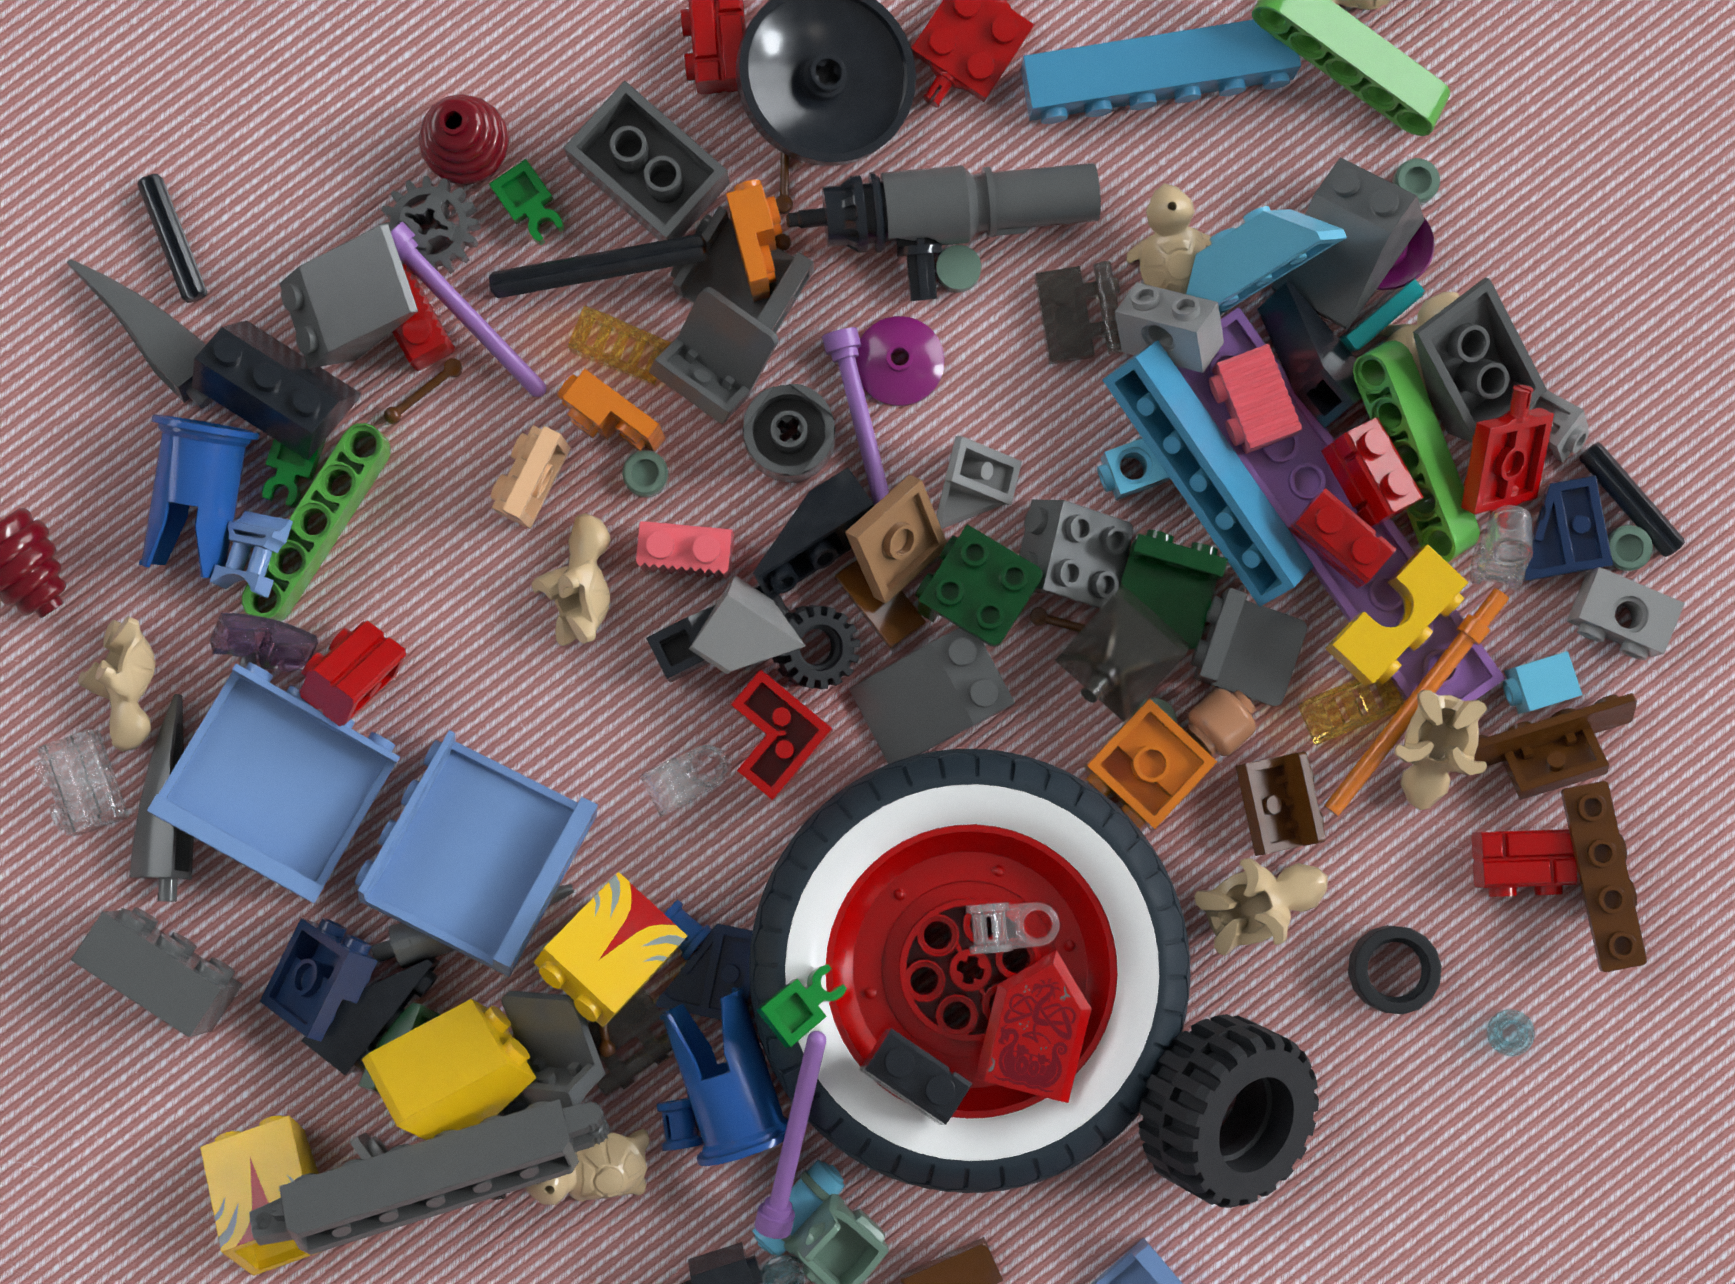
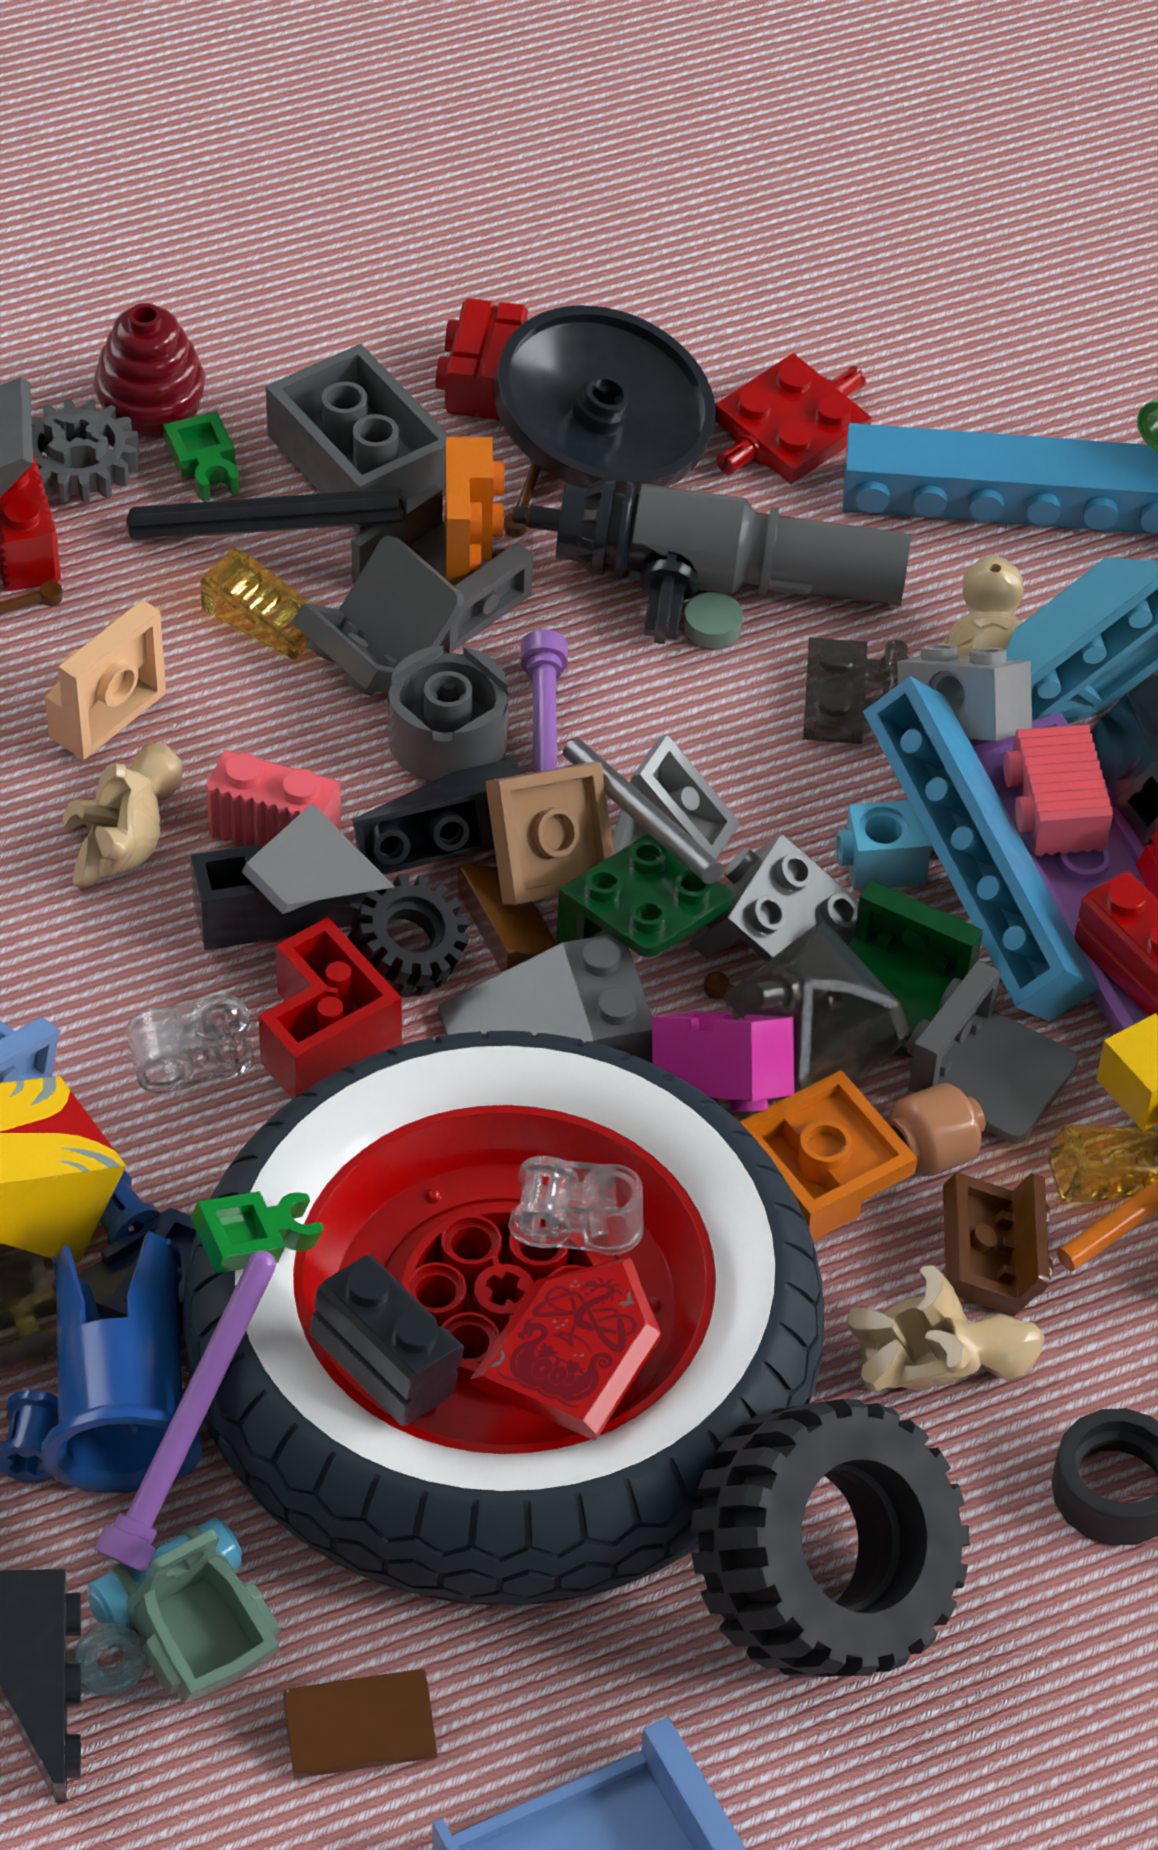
camera: 15 degrees right, 35 degrees down
(464, 312) = (78, 511): medium lavender piece -> none
(602, 410) = (230, 644): orange plate -> none
(645, 474) = (252, 732): sand green tile -> none
(903, 383) = (612, 697): magenta dish -> none
(962, 513) = (648, 815): none -> flat silver bar
(1062, 720) = (727, 1056): none -> dark pink brick

